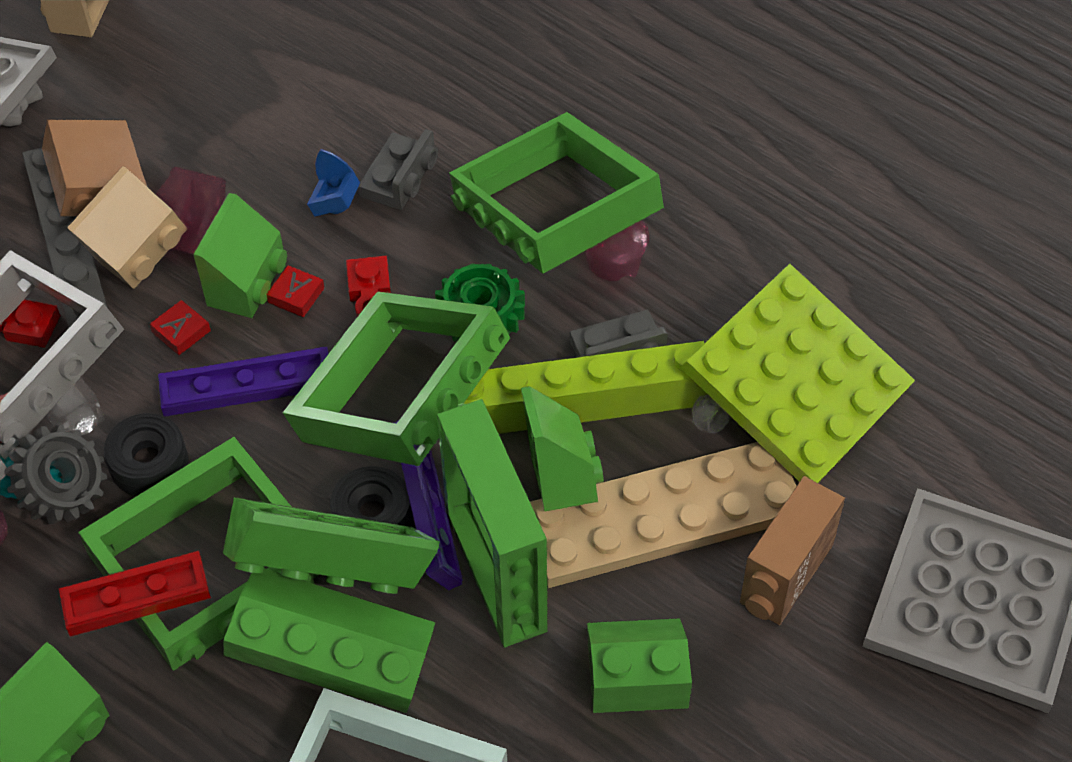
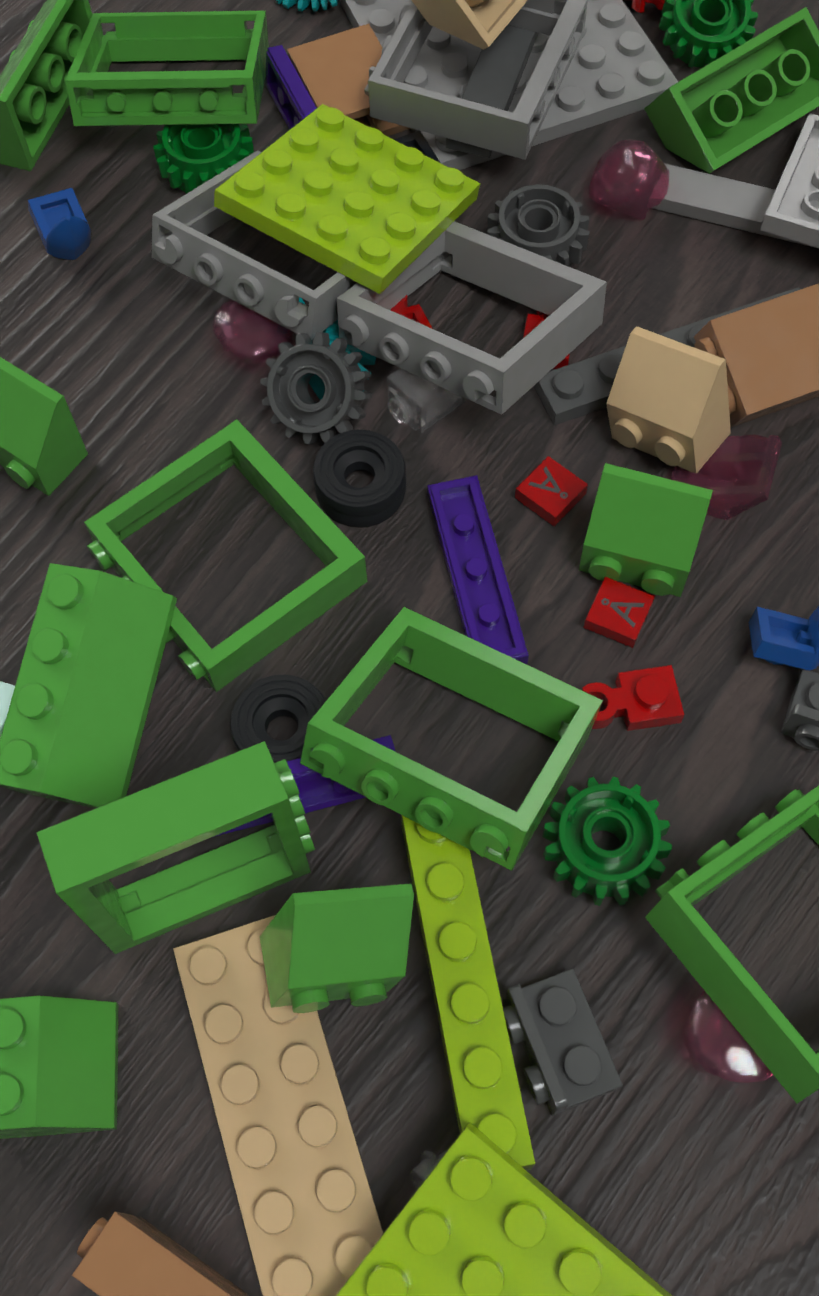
camera: 90 degrees right, 10 degrees up
(134, 593) = (149, 483): red tile -> none
(326, 545) = (185, 656): bright green slope -> none

